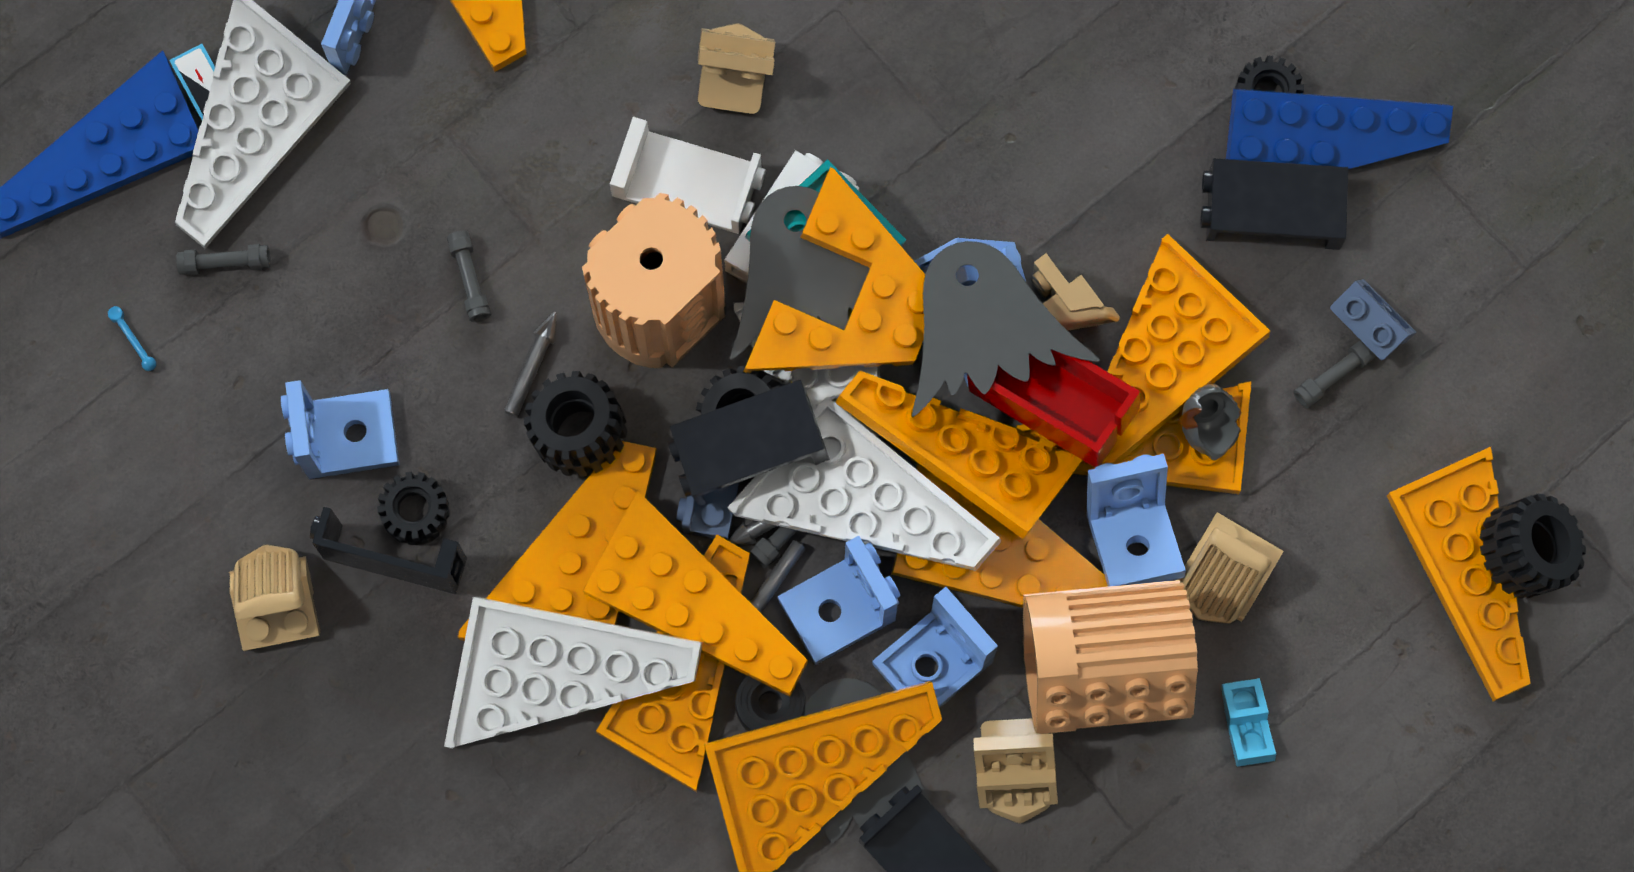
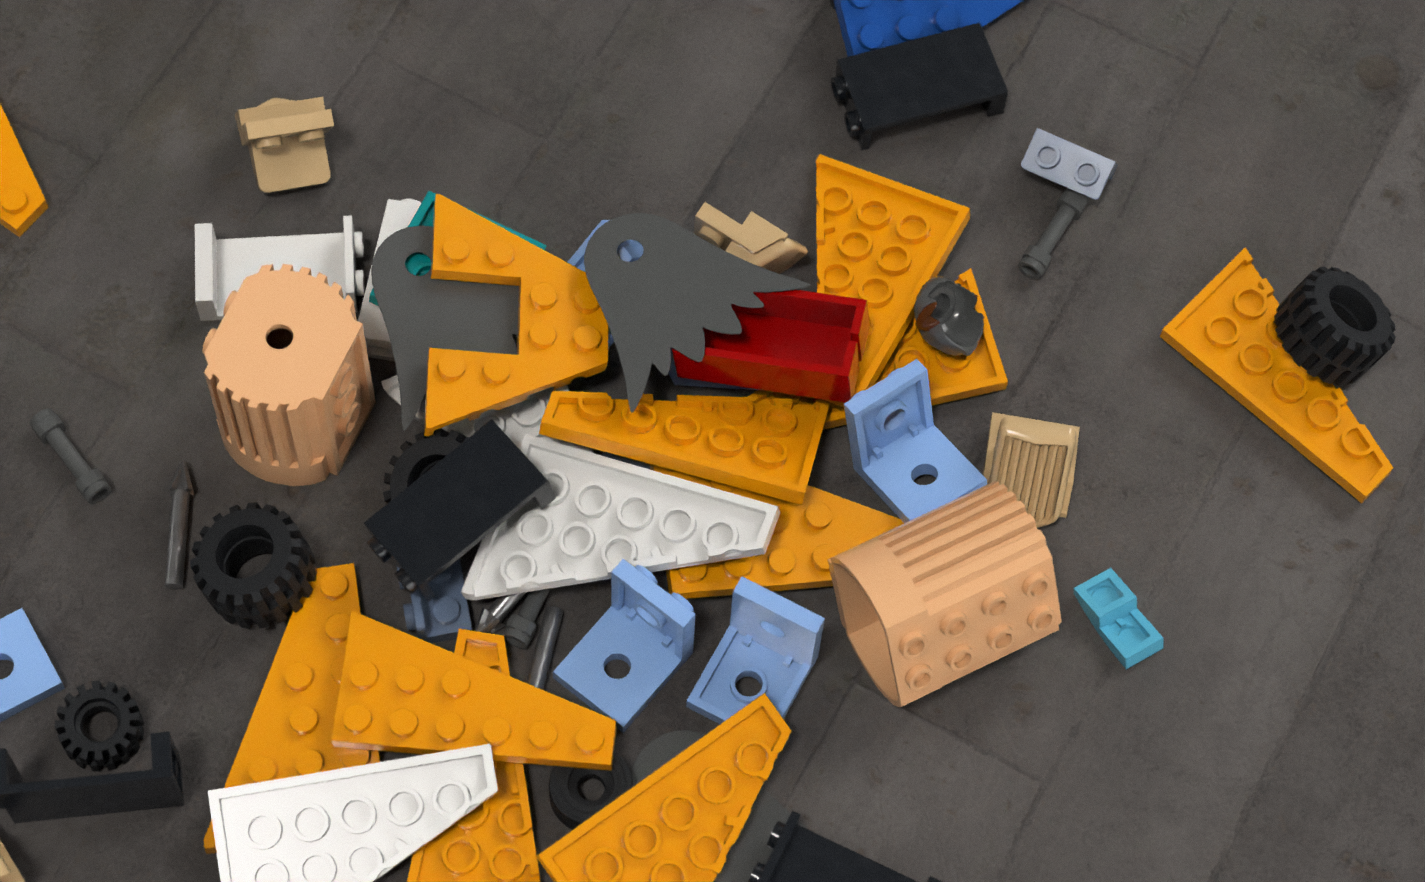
camera: 25 degrees left, 10 degrees down
(1015, 769) = (894, 757): tan piece -> none

